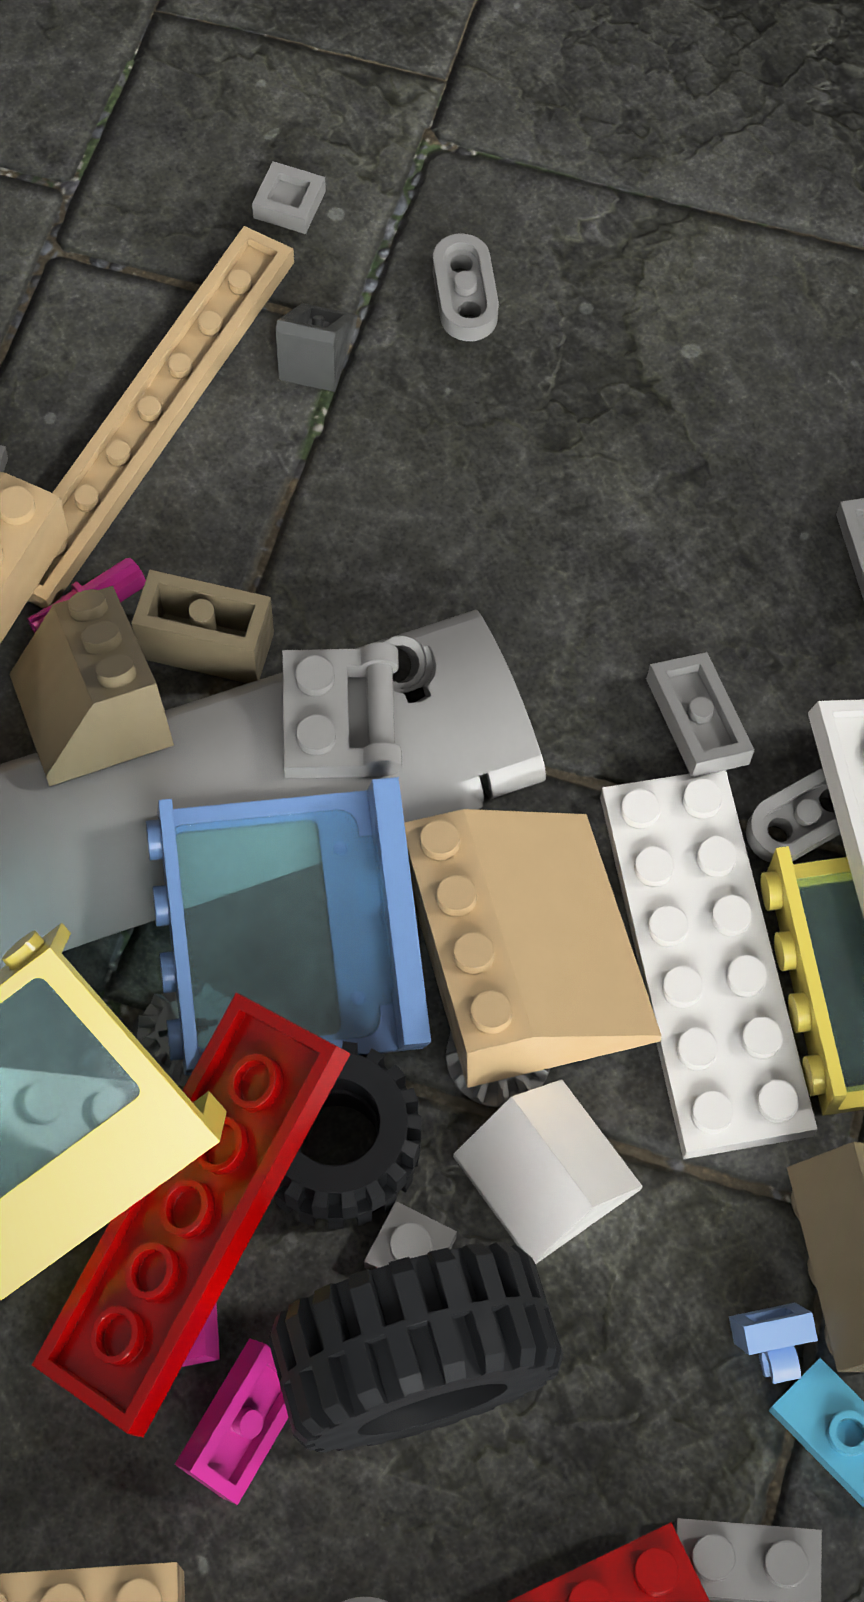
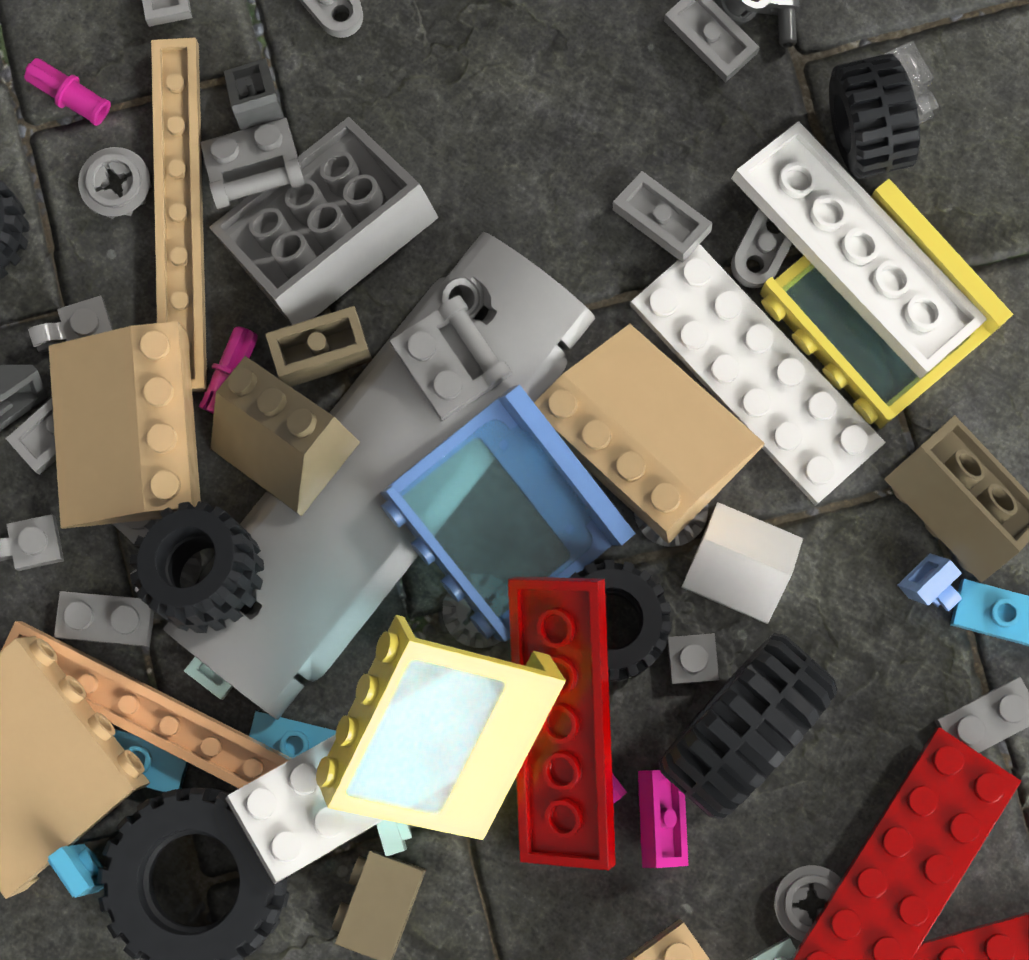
camera: 25 degrees left, 15 degrees up
(86, 333) = (94, 178): none -> light grey gear
(120, 232) = (67, 91): none -> dark pink axle
(266, 402) = (251, 162): none -> light grey plate
(306, 508) = (332, 231): none -> light grey slope

